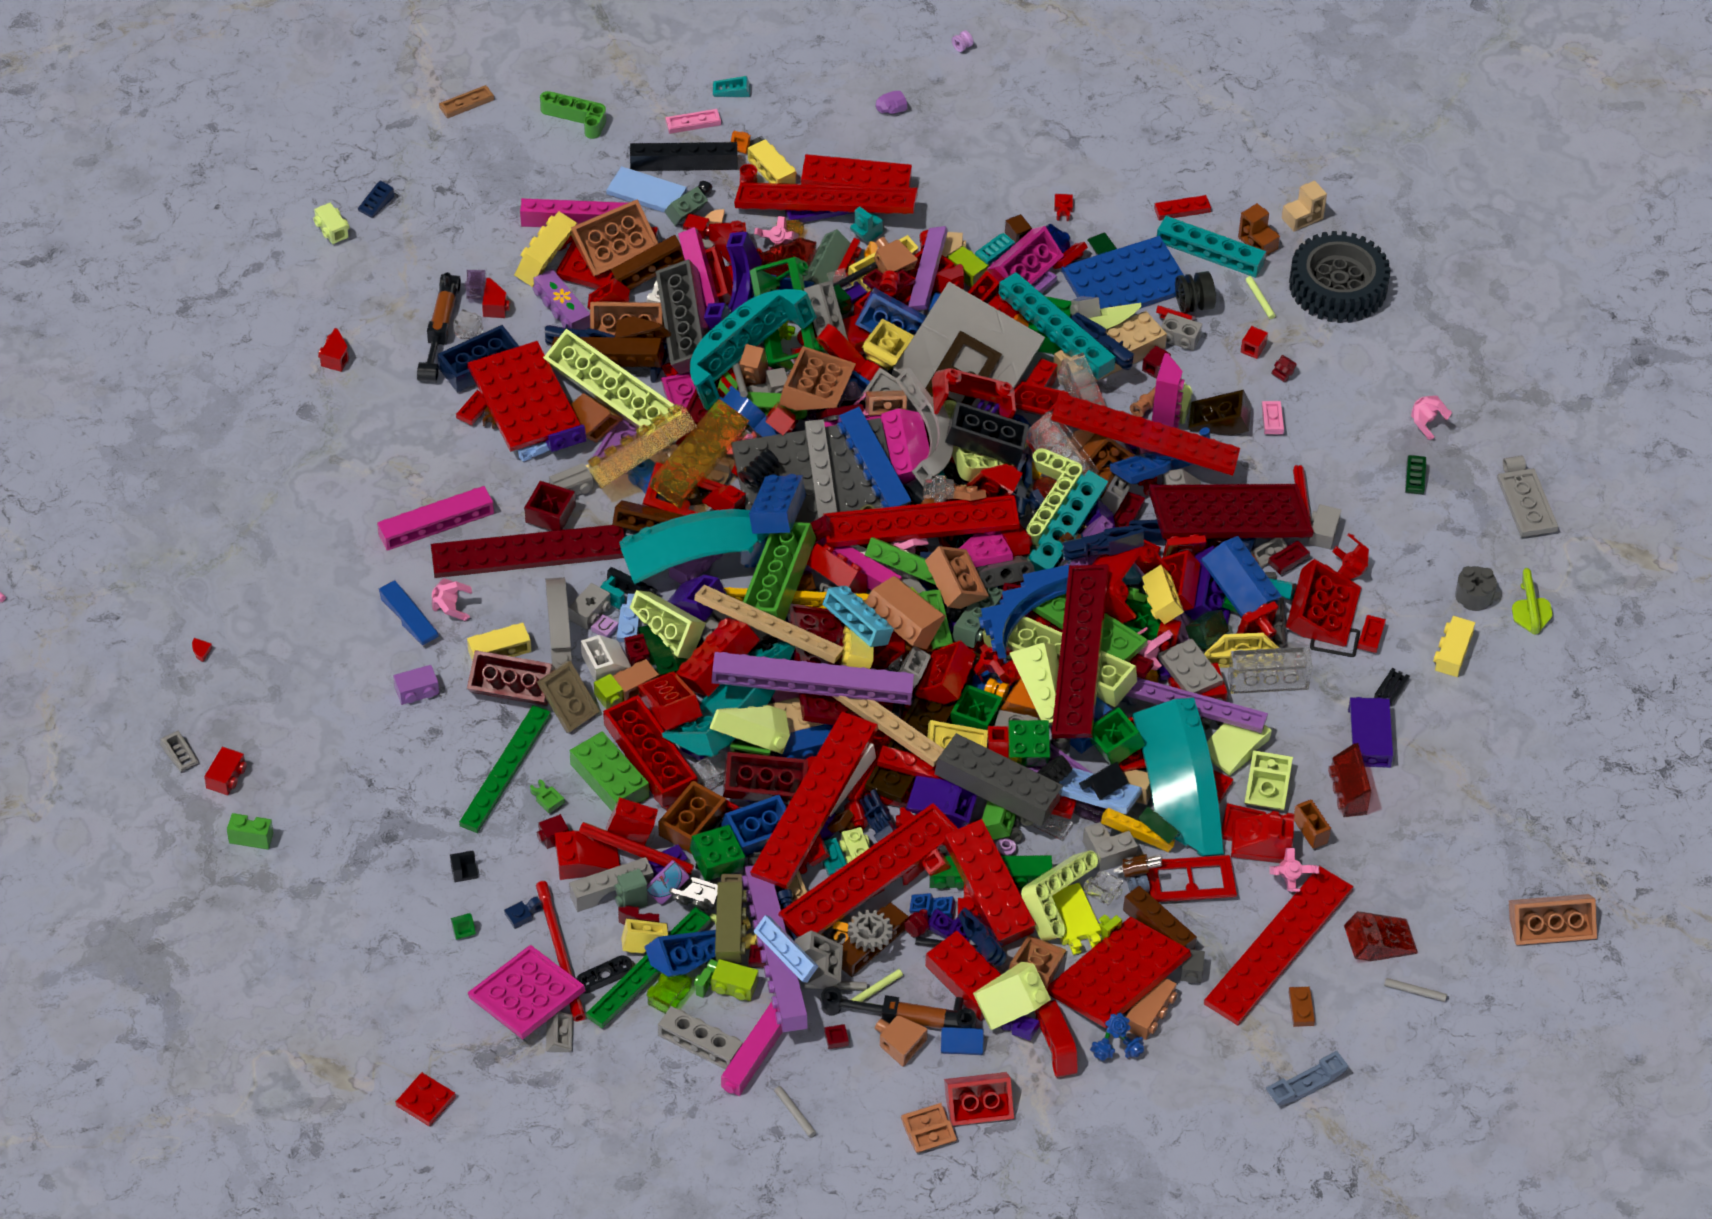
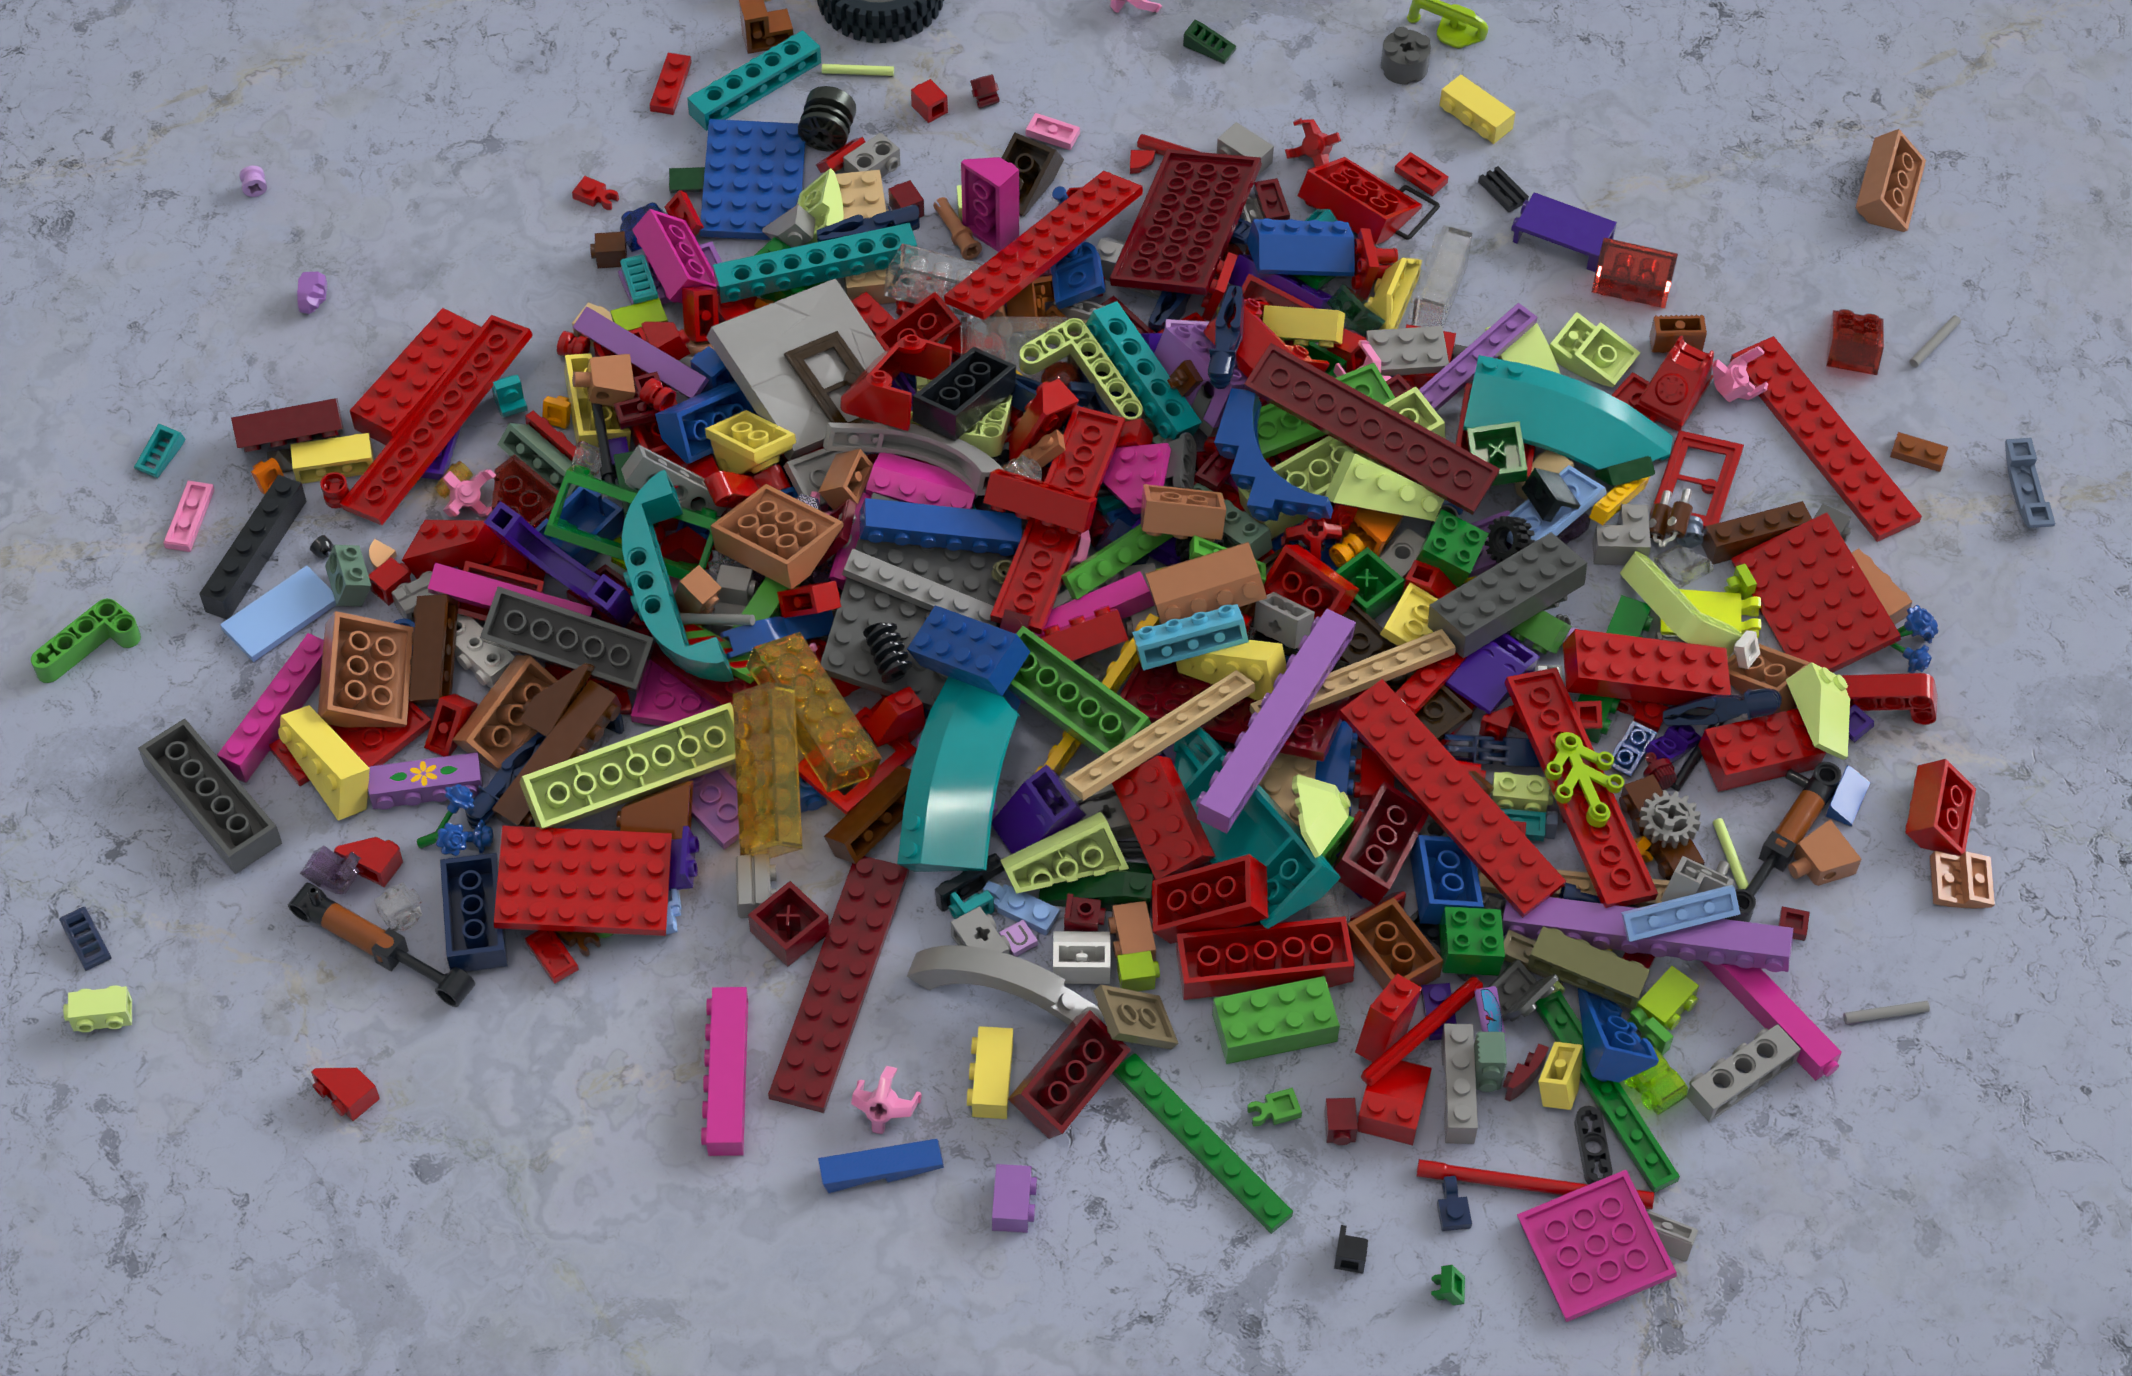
camera: 65 degrees left, 5 degrees up
(495, 209) = (210, 796): none -> dark grey brick
(518, 323) = (451, 836): none -> blue plant
(777, 131) = (287, 423): none -> dark red brick
(872, 865) = (1584, 775): none -> lime plant
(917, 499) = (1040, 501): none -> red brick
(1045, 940) = (1746, 649): none -> white plate
(1281, 474) = (1140, 159): none -> red tile

